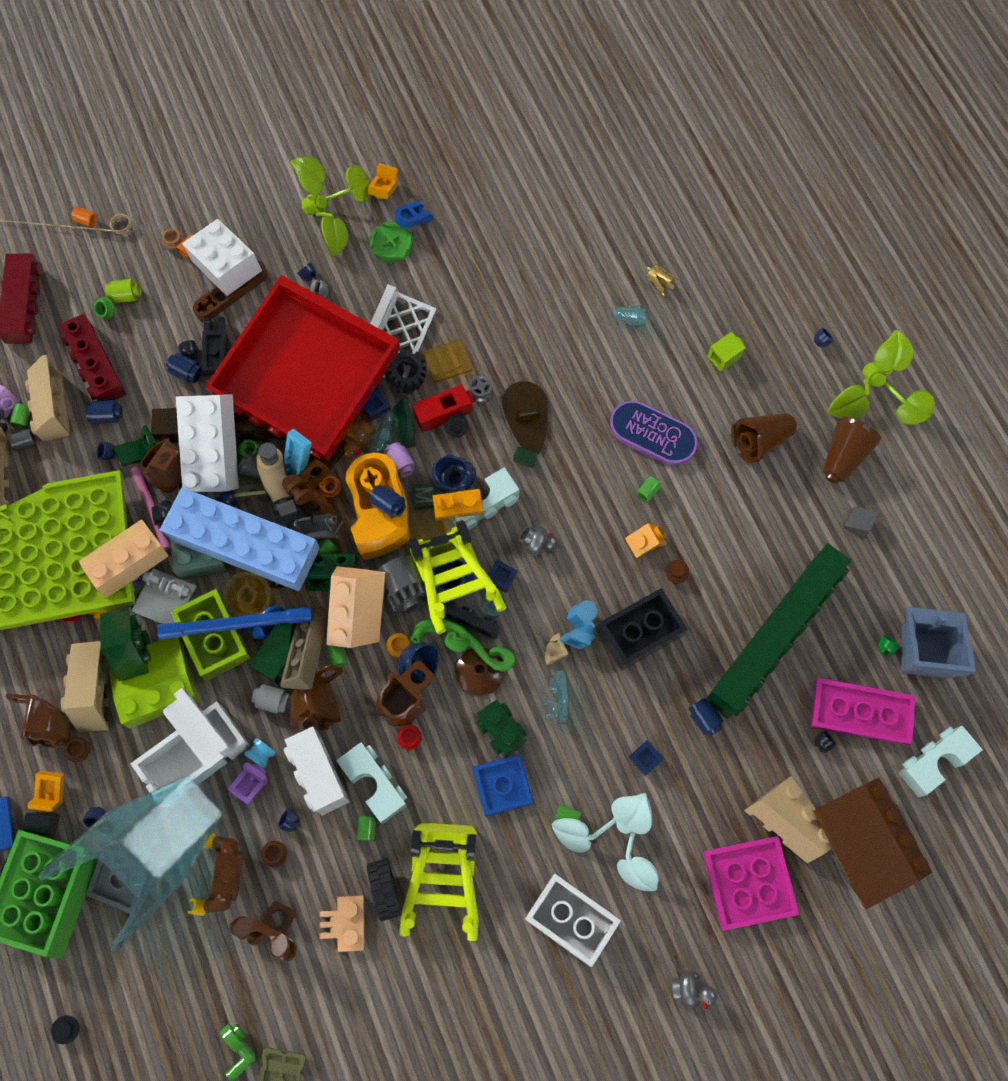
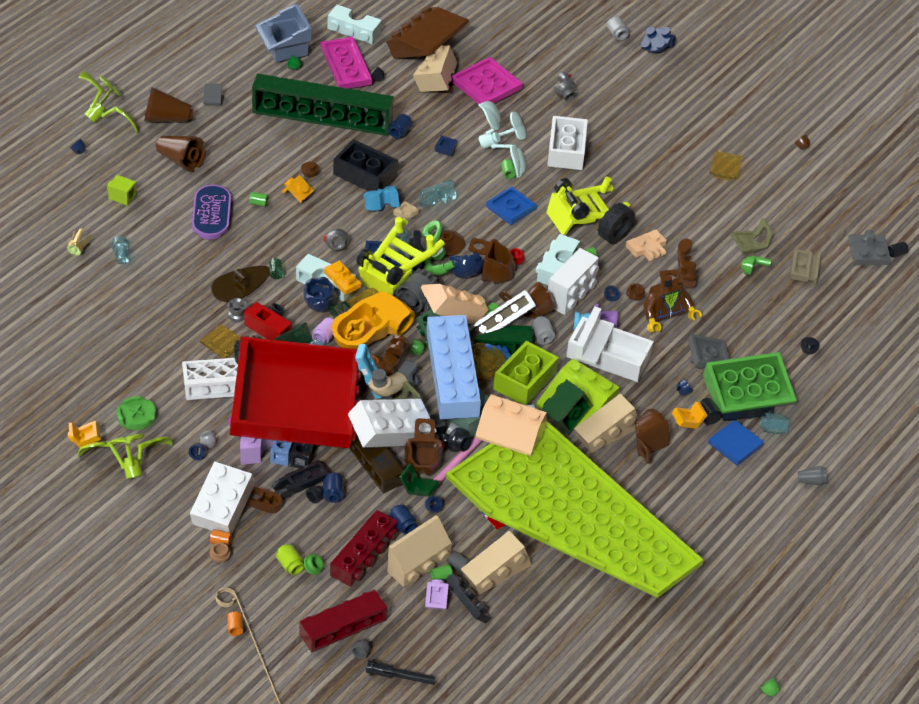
camera: 120 degrees left, 25 degrees down
(146, 845) = (693, 337): clear light blue windscreen -> none
(179, 629) = (539, 368): blue piece -> none
(325, 526) = (412, 350): dark grey hinge -> none
(387, 501) = (371, 299): dark blue brick -> none
(397, 643) = (460, 284): light orange tile -> none
(412, 215) = (105, 403): blue plate -> none
(498, 725) = (478, 212): dark green brick -> none

